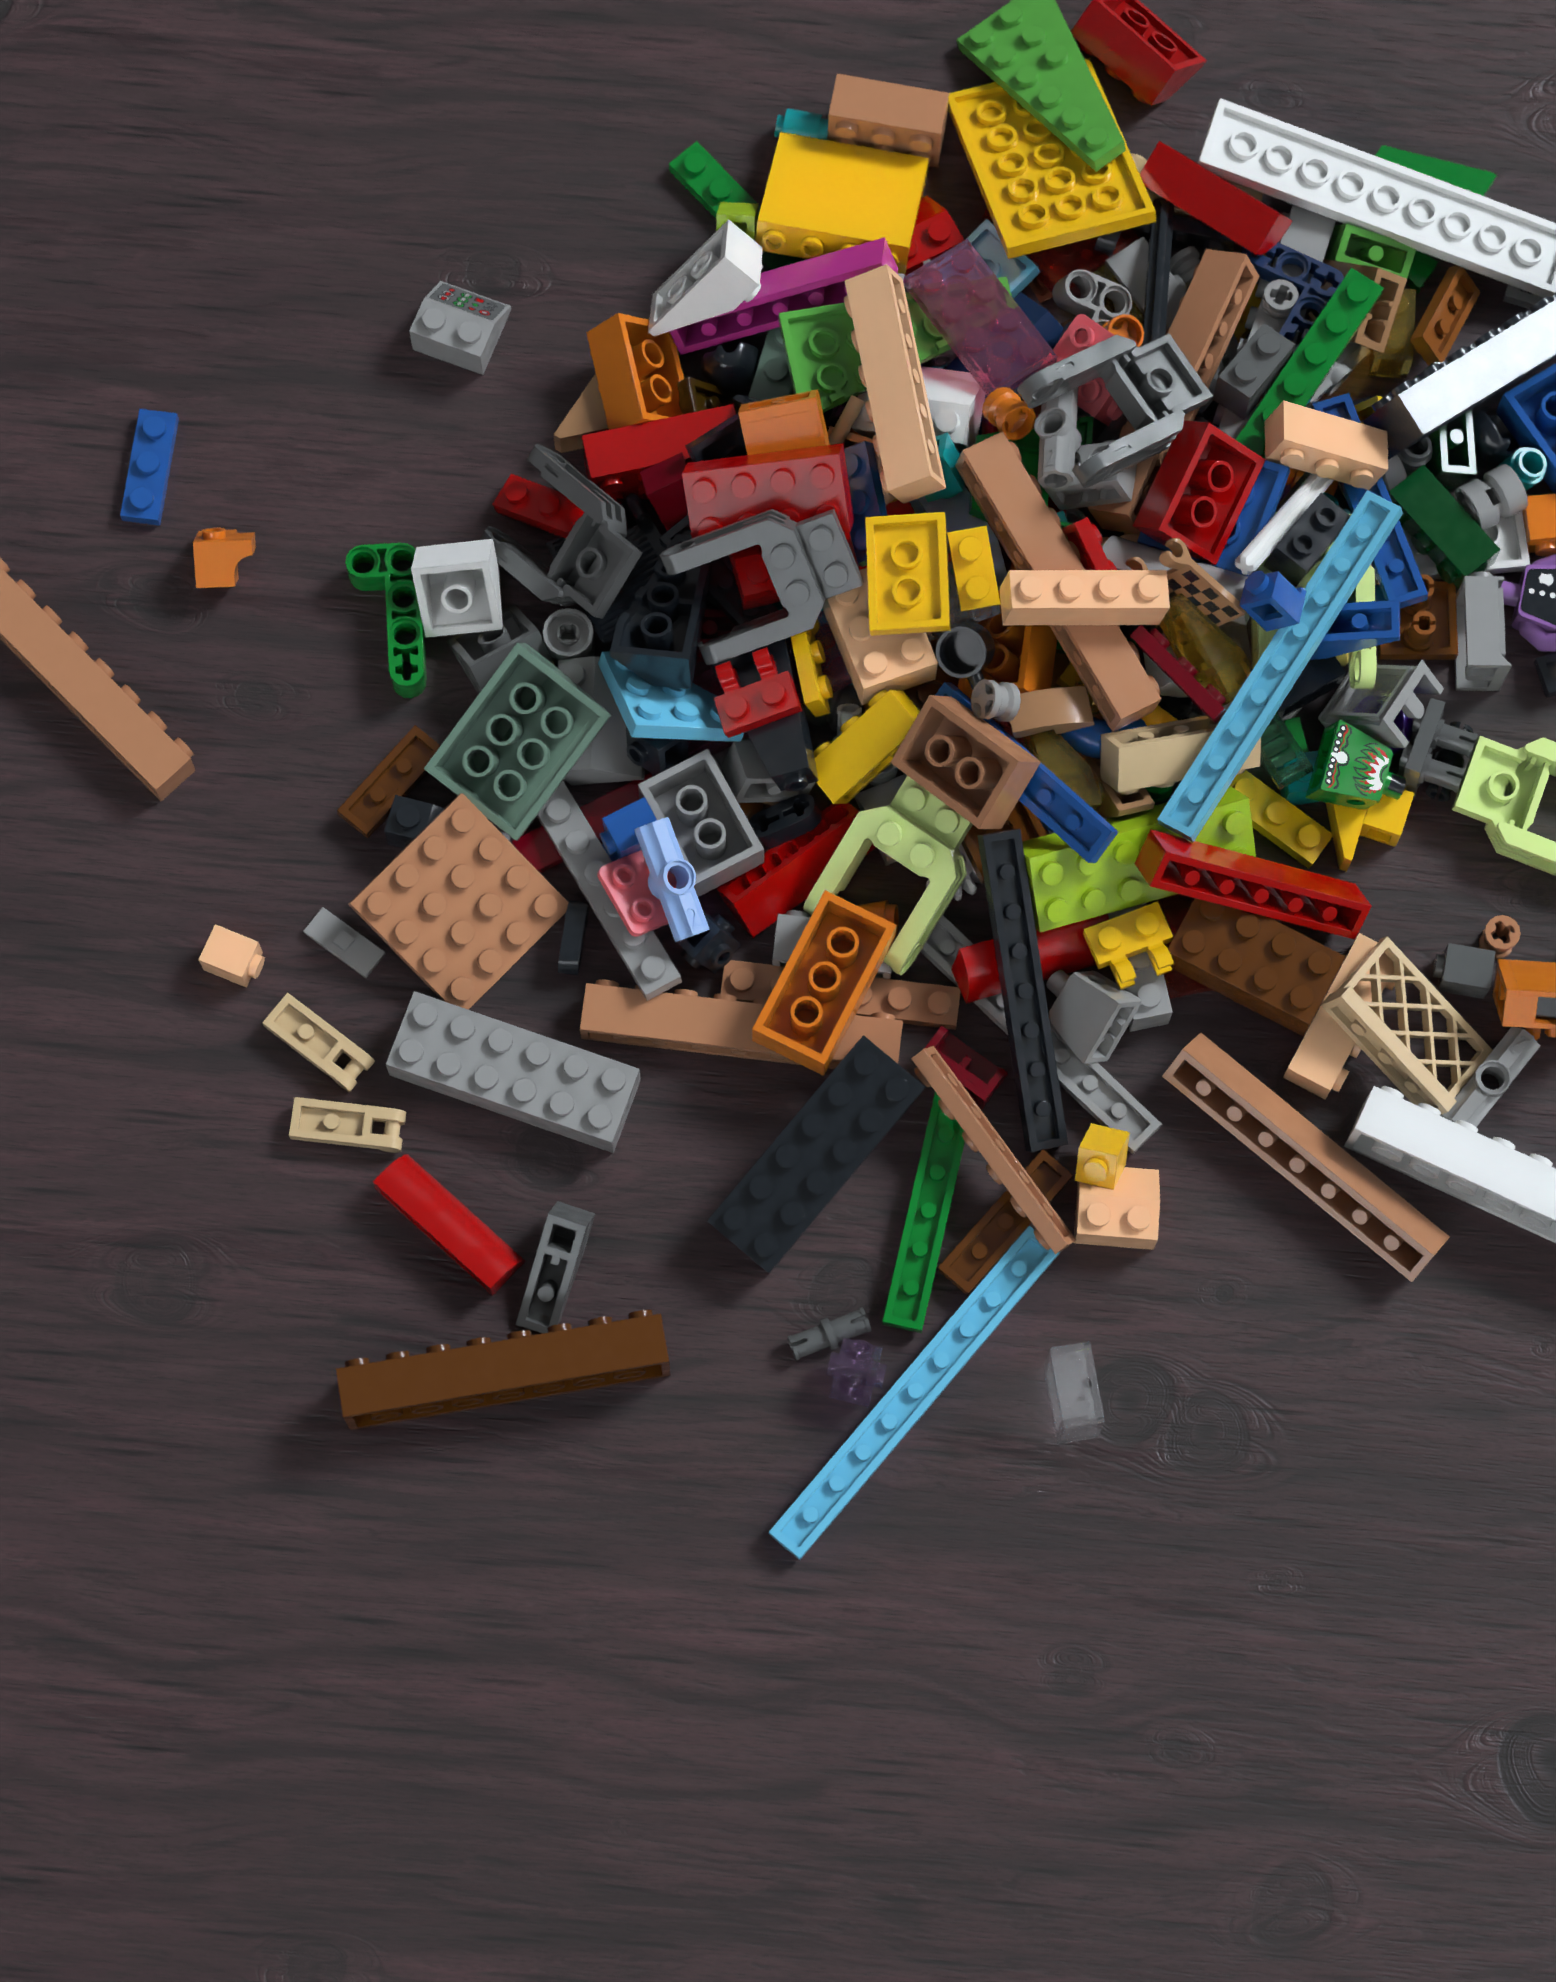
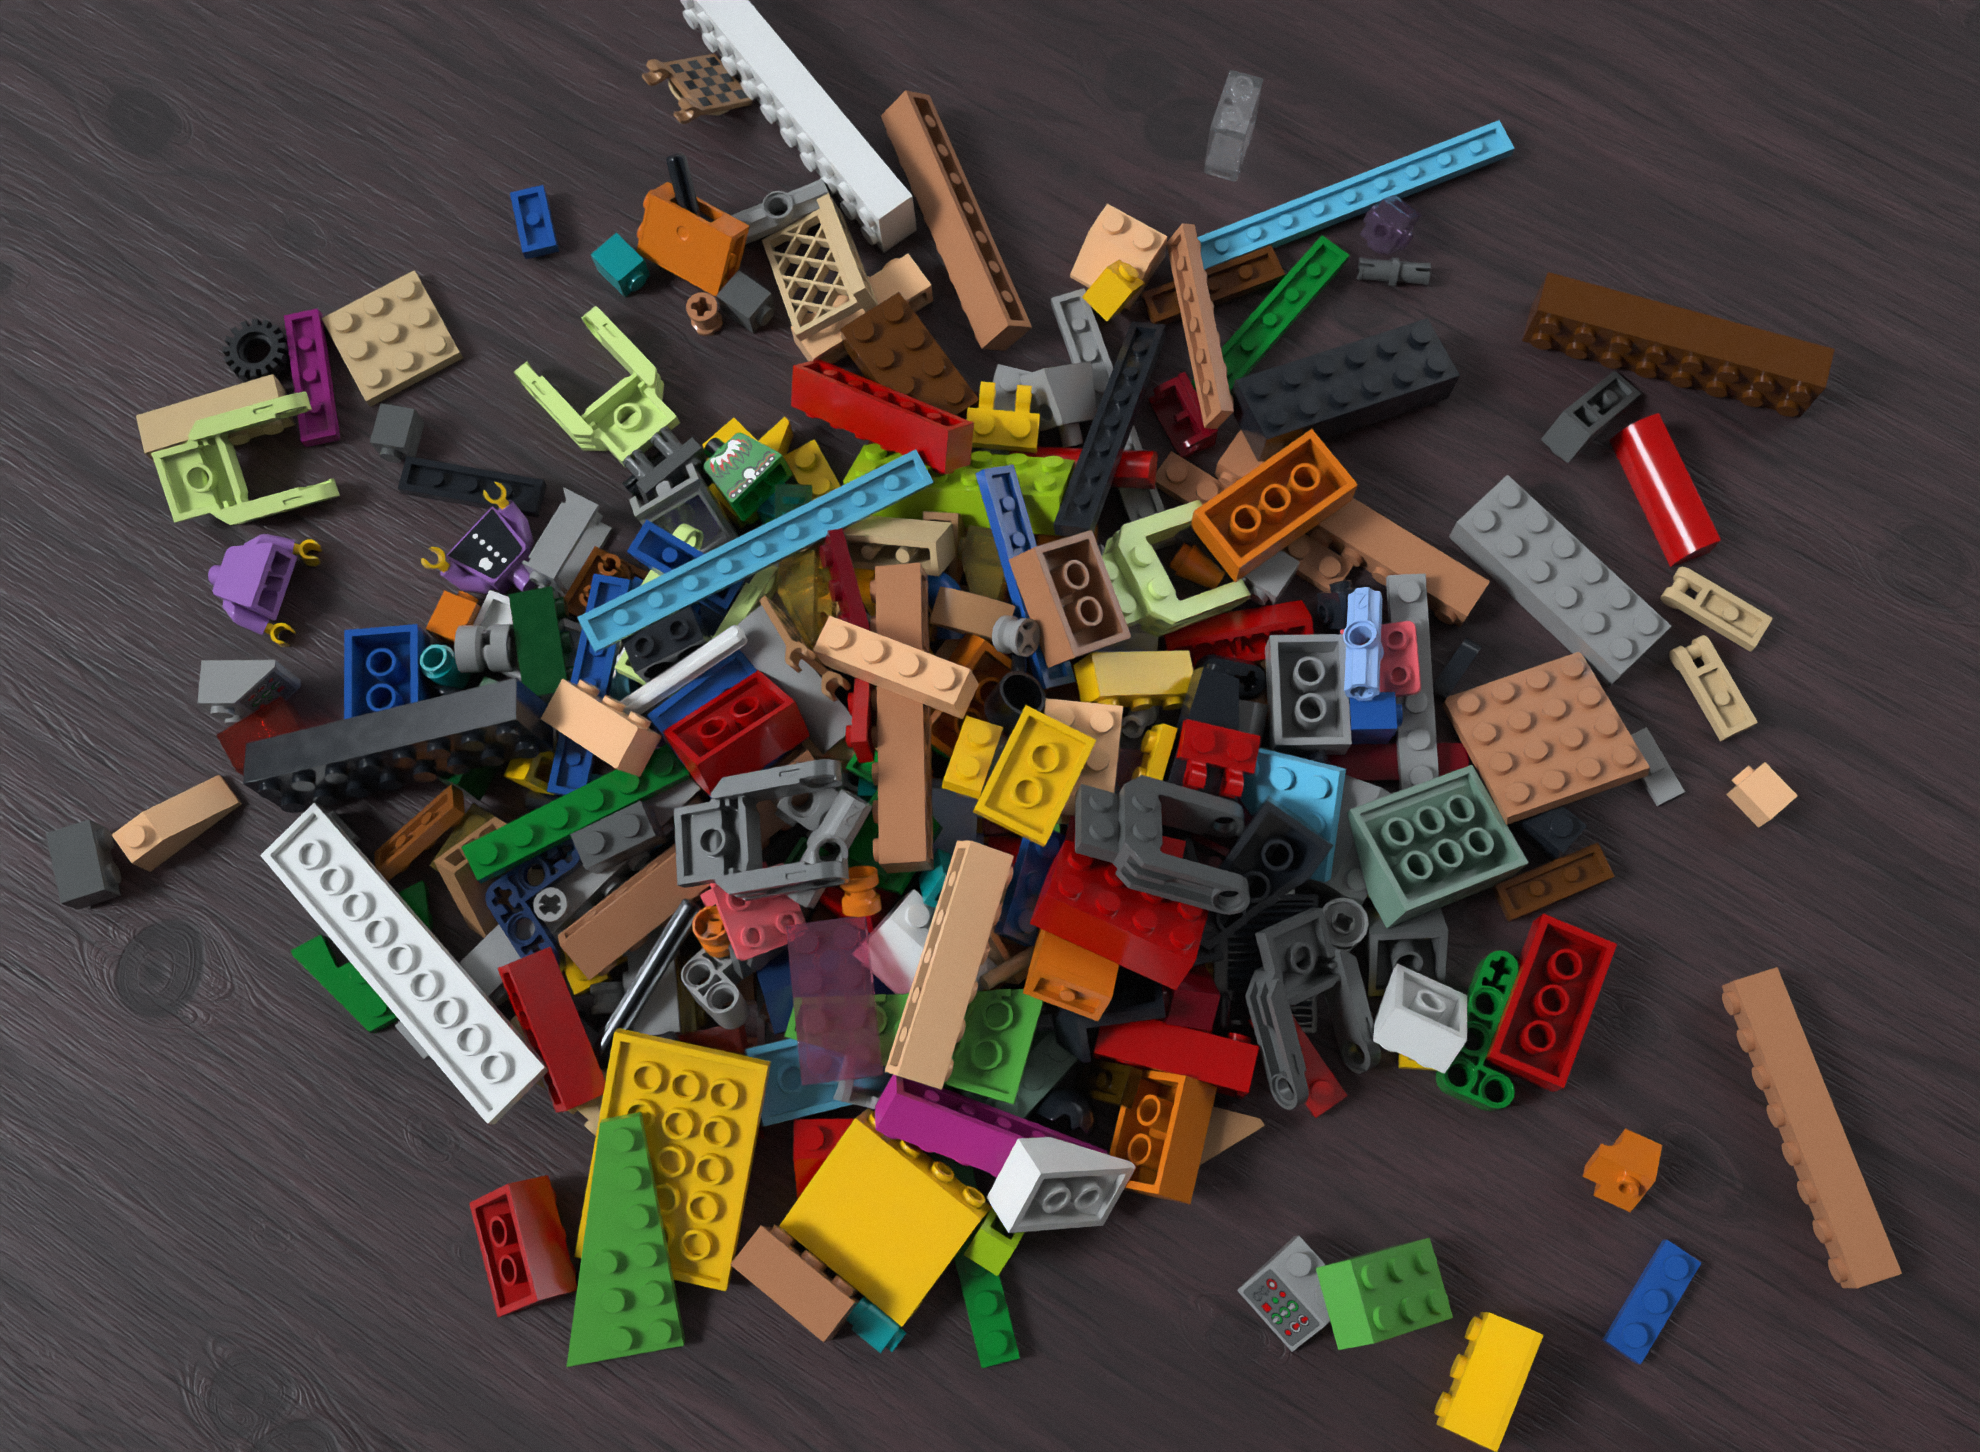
camera: 145 degrees left, 0 degrees up
(266, 327) = (1488, 1380): none -> yellow slope
(349, 663) = (1550, 1002): none -> red brick
(386, 342) = (1384, 1294): none -> bright green brick
(1270, 593) = (732, 595): blue brick -> none
(1369, 248) = (446, 921): bright green slope -> none

